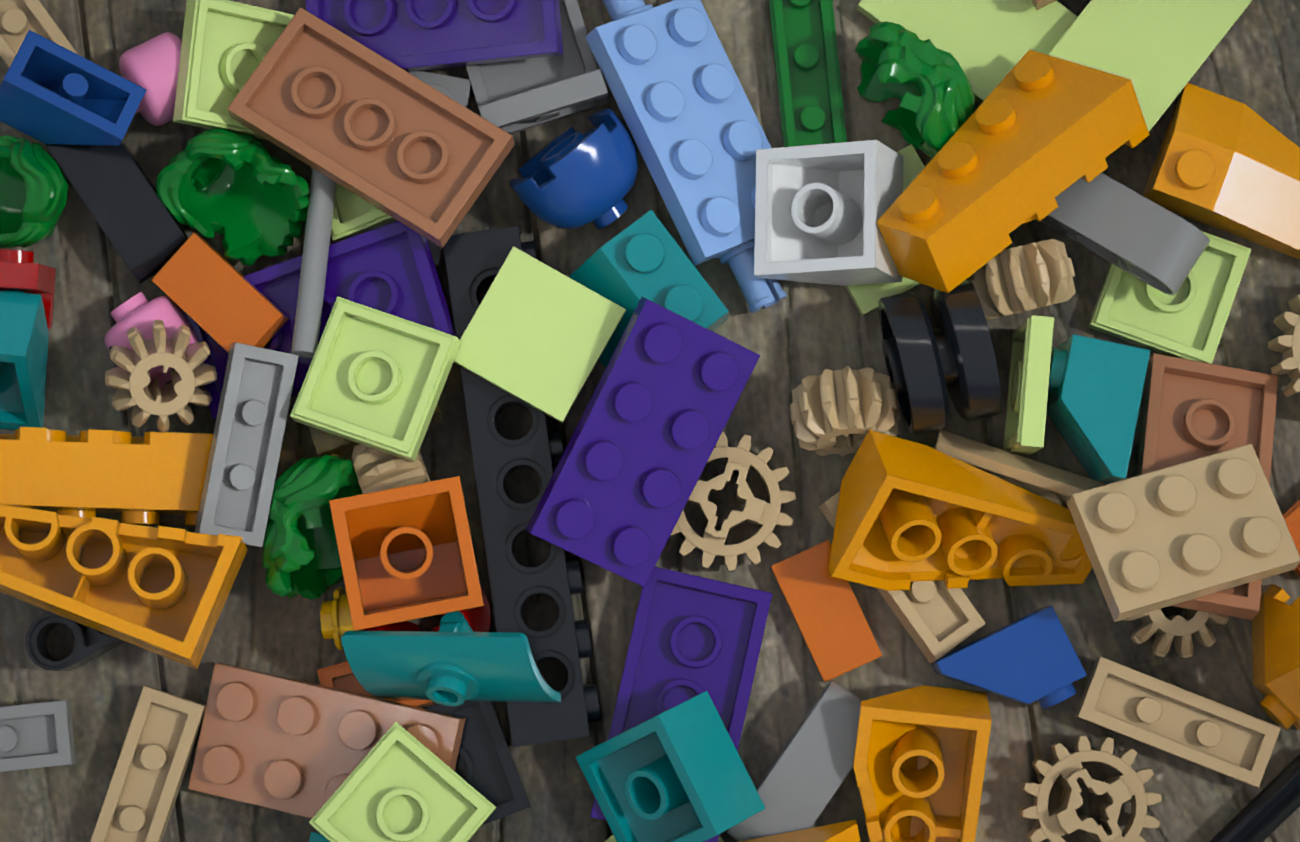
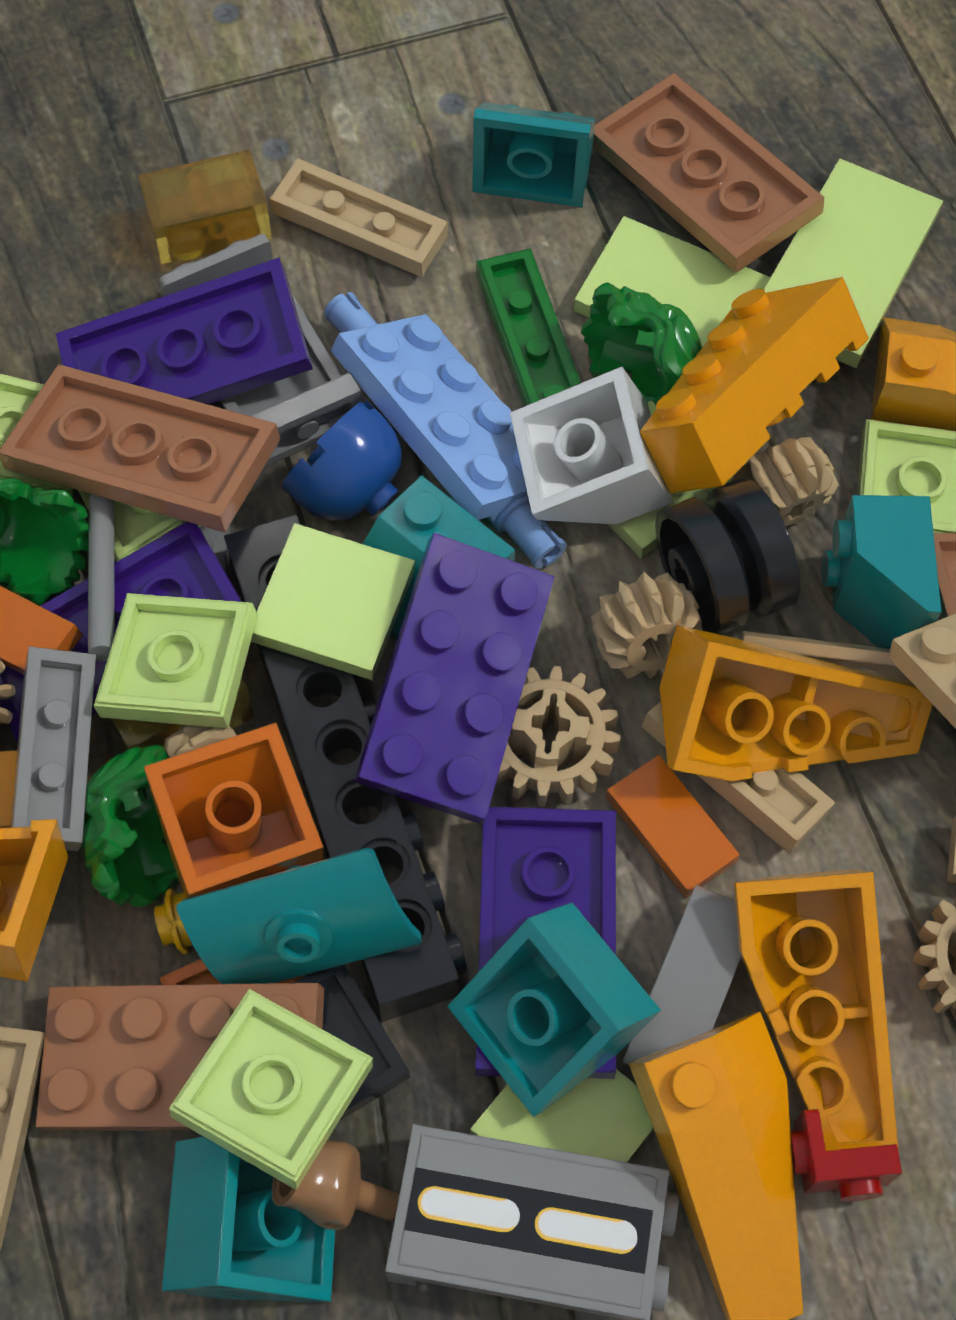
camera: 10 degrees left, 20 degrees down
(1019, 661) = (877, 831): blue slope -> none
(1028, 386) = (822, 566): yellowish green tile -> none
(1128, 231) = (868, 426): light grey beam -> none

